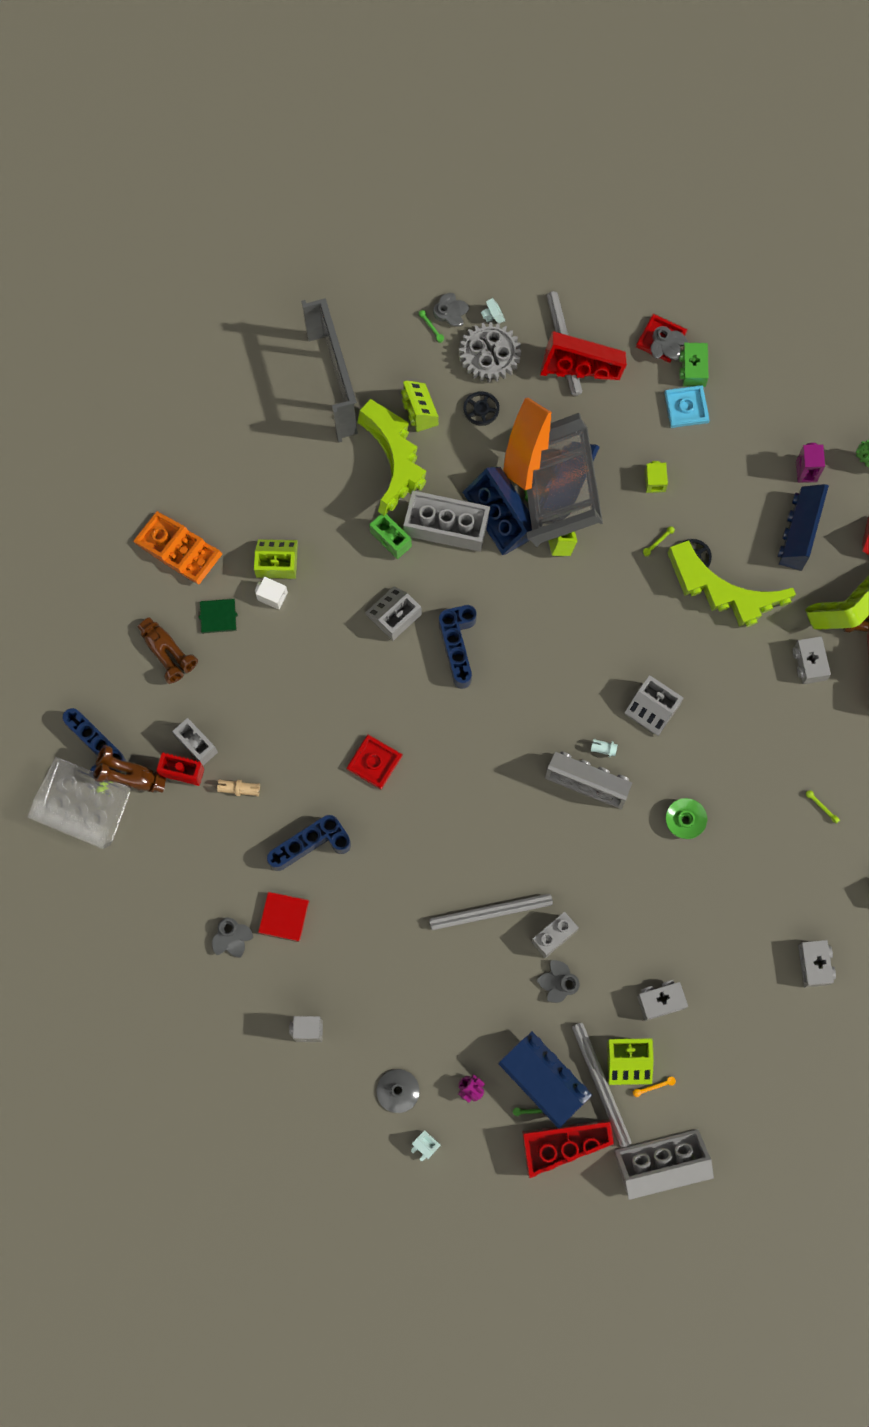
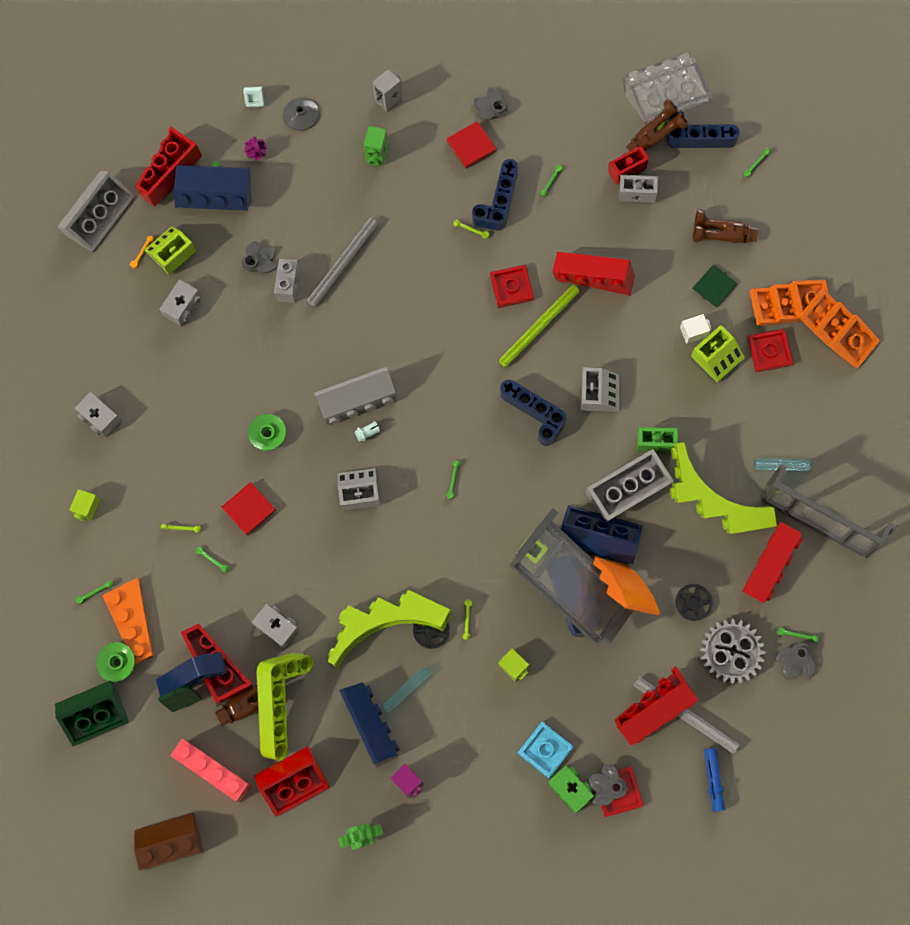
camera: 140 degrees right, 0 degrees up
(93, 680) = (747, 172): none -> bright green hinge
(166, 495) = (839, 328): none -> orange slope
(232, 529) = (770, 350): none -> red tile
(235, 827) = (558, 169): none -> bright green hinge
(238, 787) = (581, 191): tan pin -> none
(302, 707) = (595, 272): none -> red wedge
(315, 441) = (792, 464): none -> clear light blue axle
(351, 826) = (485, 234): none -> lime hinge
(369, 983) = (376, 146): none -> bright green brick
(385, 708) = (539, 325): none -> lime axle
(387, 381) = (772, 562): none -> red wedge
(419, 405) = (738, 555): lime slope -> none
(493, 312) = (763, 688): light aqua tile -> none
(584, 642) = (450, 494): none -> bright green hinge
(592, 282) = (715, 788): none -> blue pin
(601, 1085) = (177, 223): light grey axle -> none
(751, 531) = (406, 689): none -> clear light blue axle
(754, 772) = (248, 508): none -> red tile
(822, 775) = (199, 550): none -> bright green hinge

